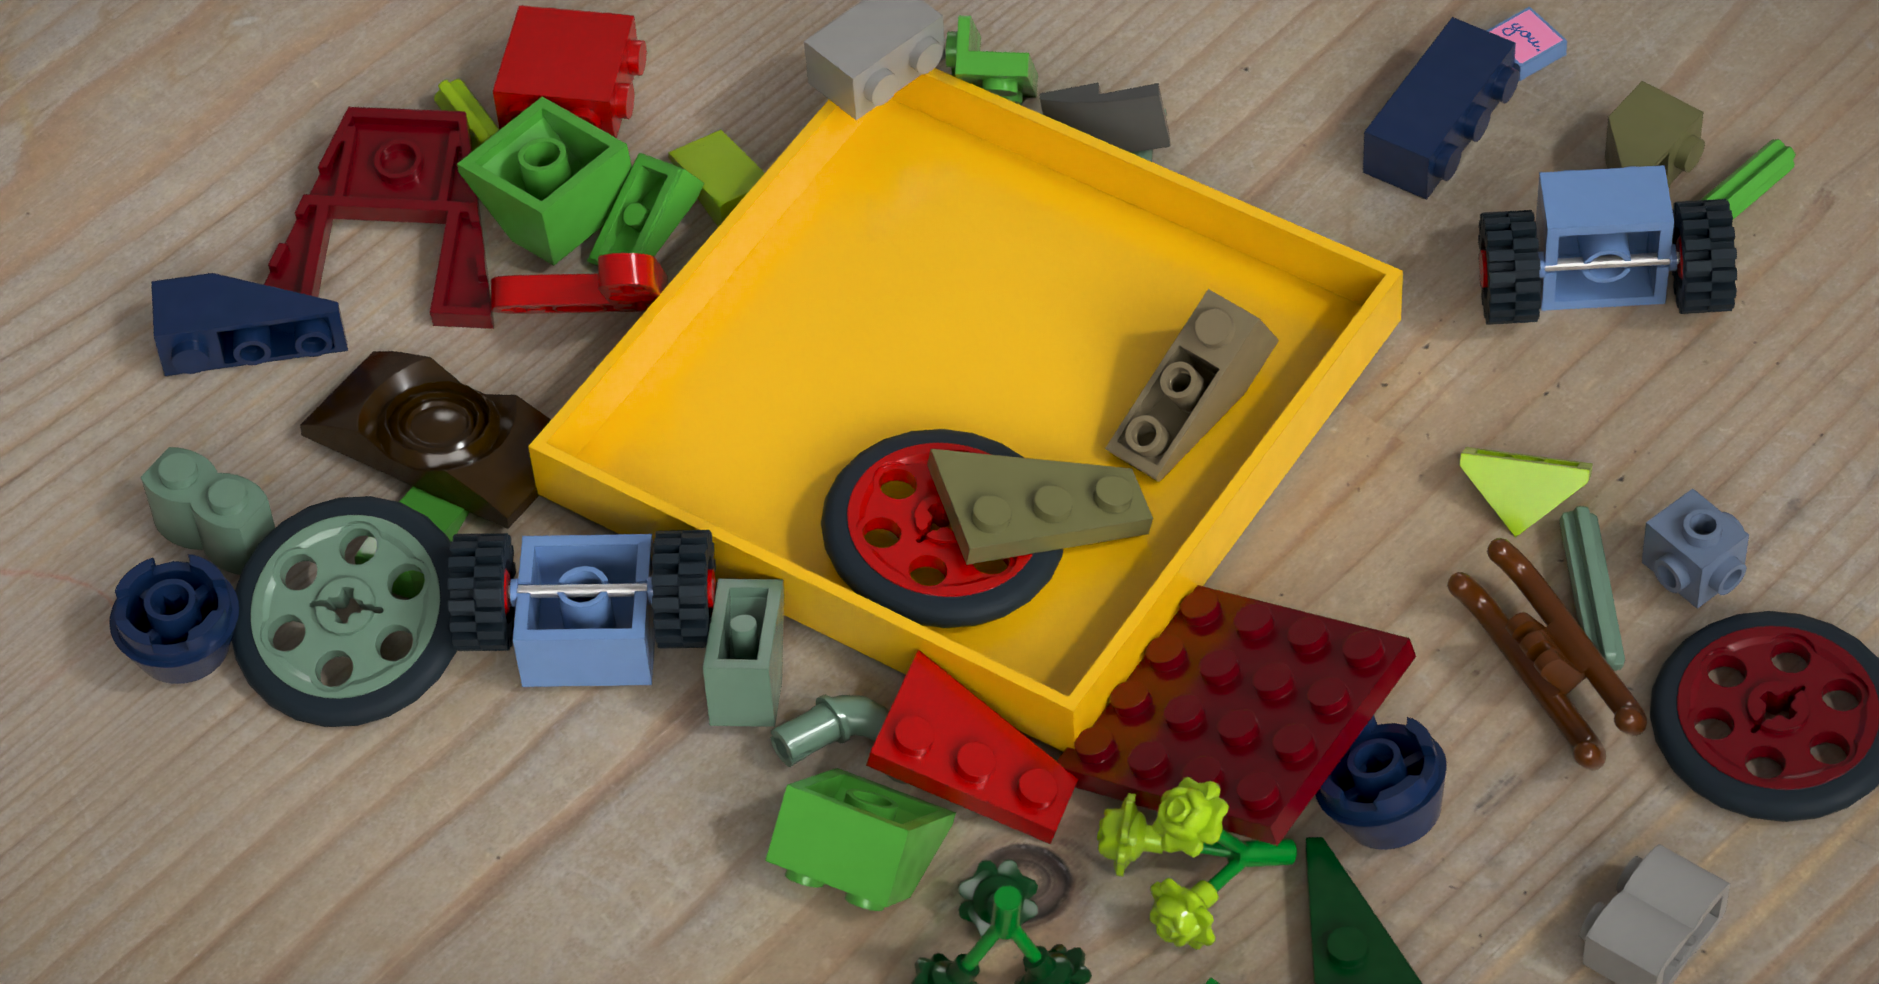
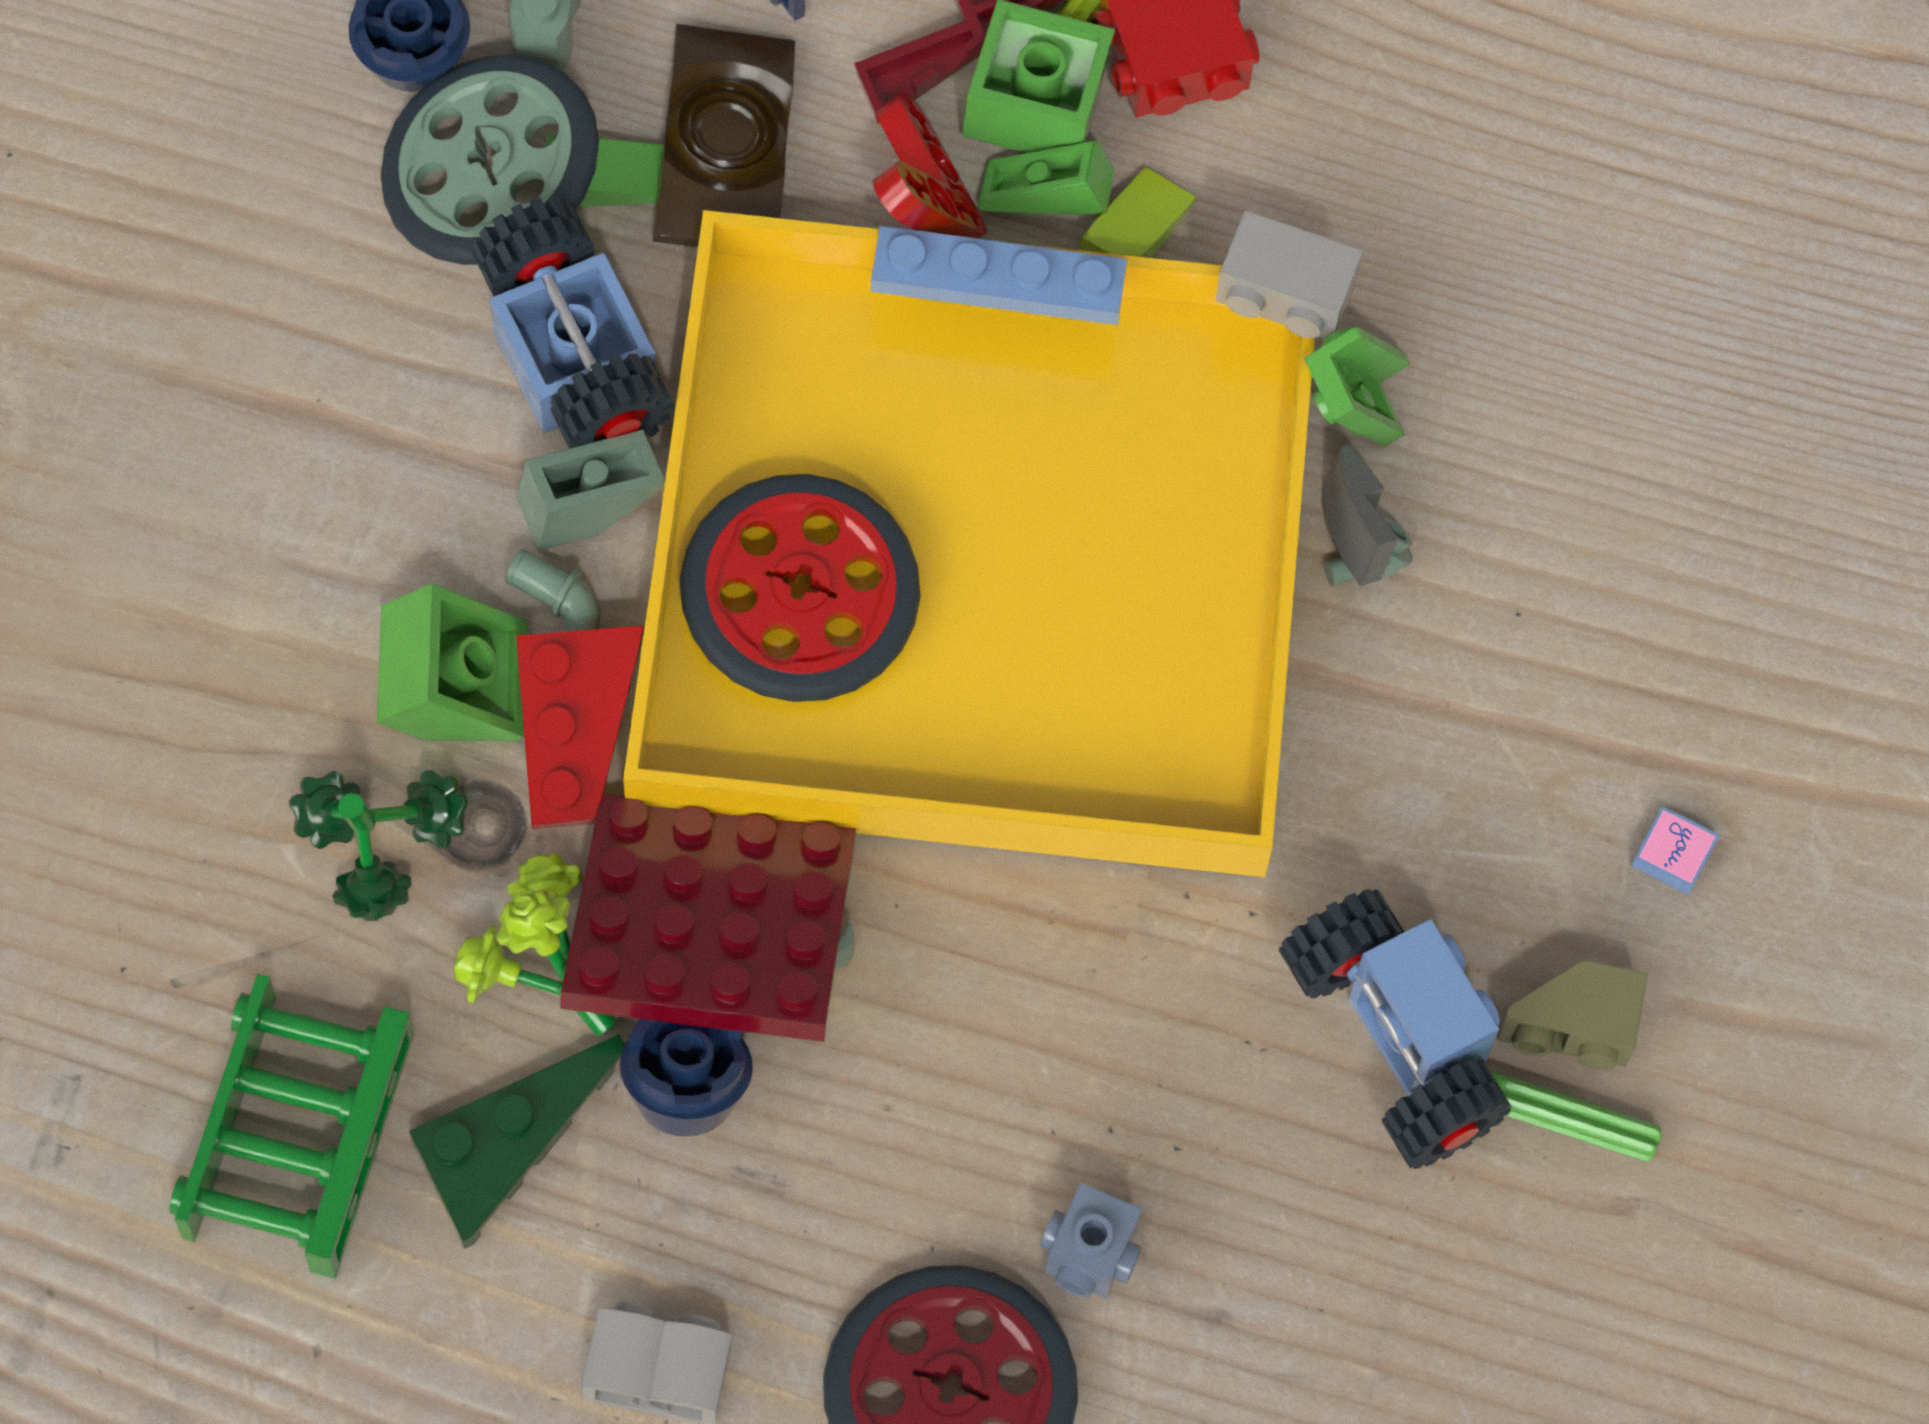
camera: 55 degrees right, 15 degrees up
(738, 253) = (998, 275): none -> medium blue plate
(1034, 505) = (850, 649): olive wing -> none
(1193, 385) = (1063, 726): dark tan slope -> none
(1440, 108) = (1538, 806): dark blue brick -> none
(1523, 485) = (1119, 1058): lime slope -> none
(1550, 657) = (914, 1164): reddish brown piece -> none
(1591, 583) = (1017, 1170): sand green axle -> none

